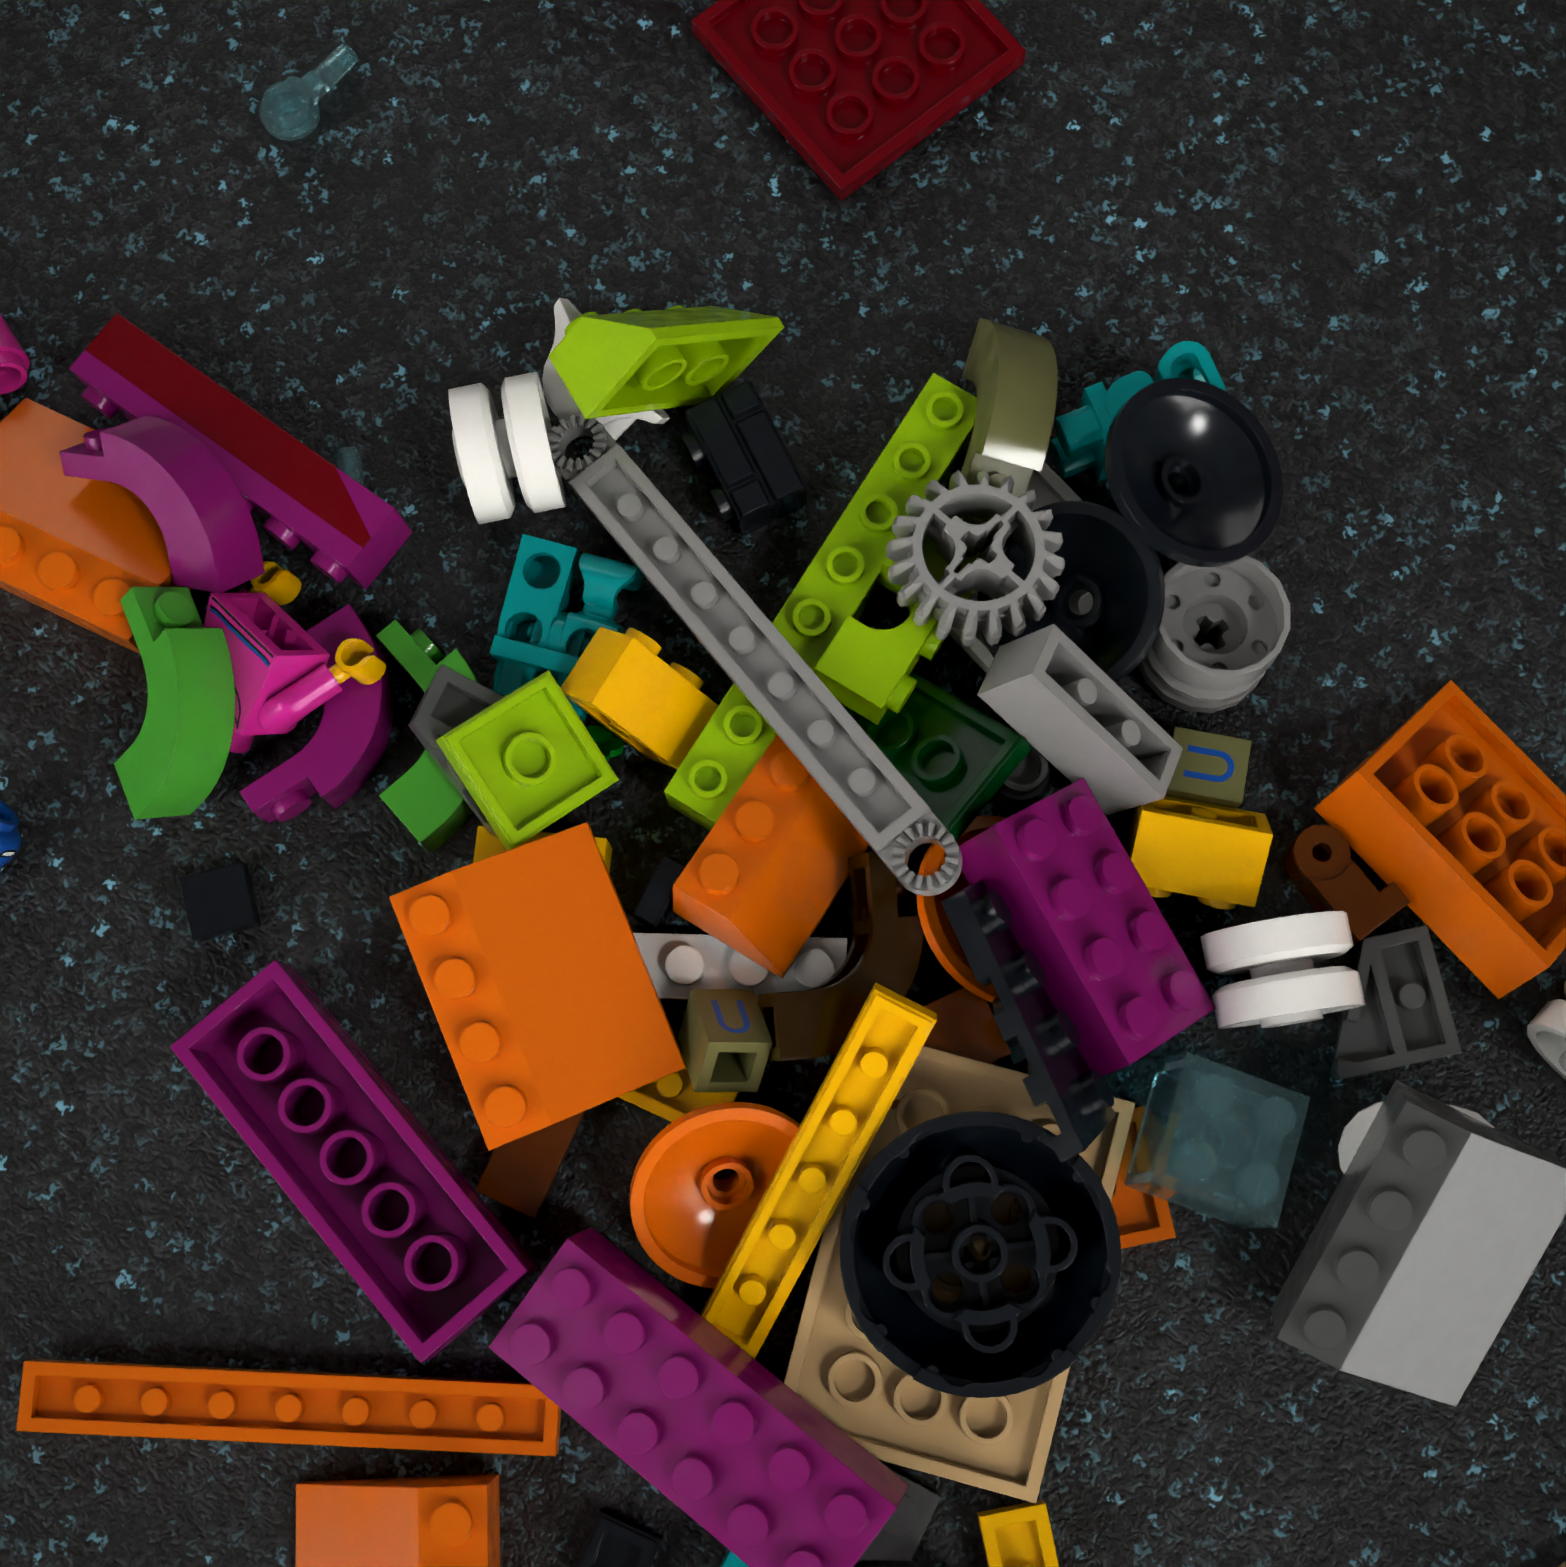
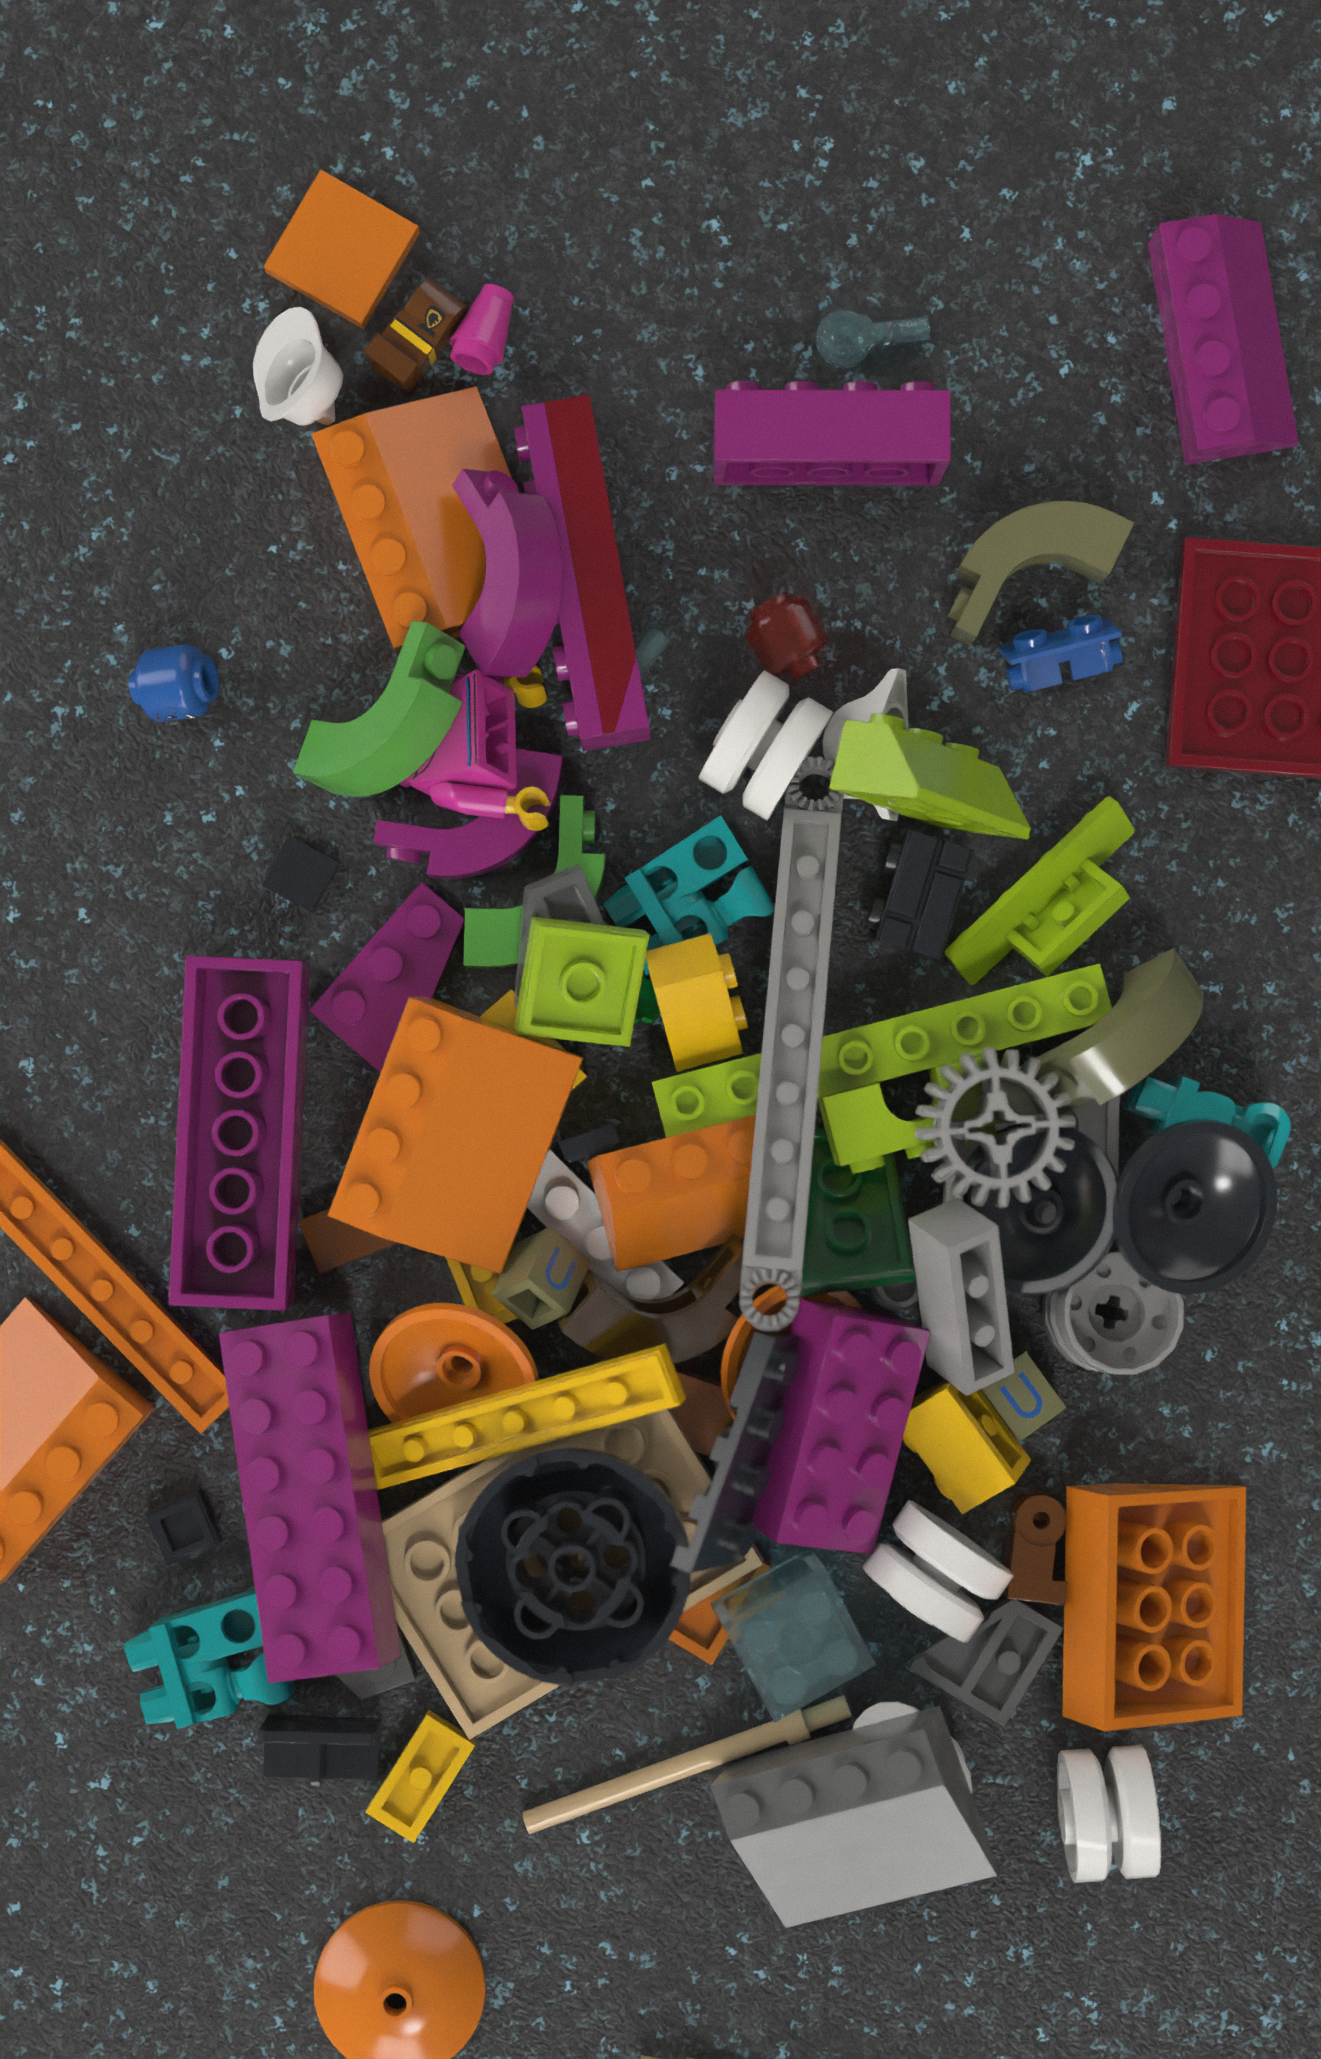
camera: 40 degrees right, 10 degrees up
(340, 177) = (831, 435): none -> magenta brick
(364, 941) = (397, 963): none -> magenta wing
(447, 356) = (786, 636): none -> clear red head
(580, 112) = (1046, 533): none -> olive arch
(693, 168) = (1082, 644): none -> blue hinge
(853, 372) = (1053, 903): none -> lime bracket
(1293, 1226) = (792, 1728): none -> tan bar

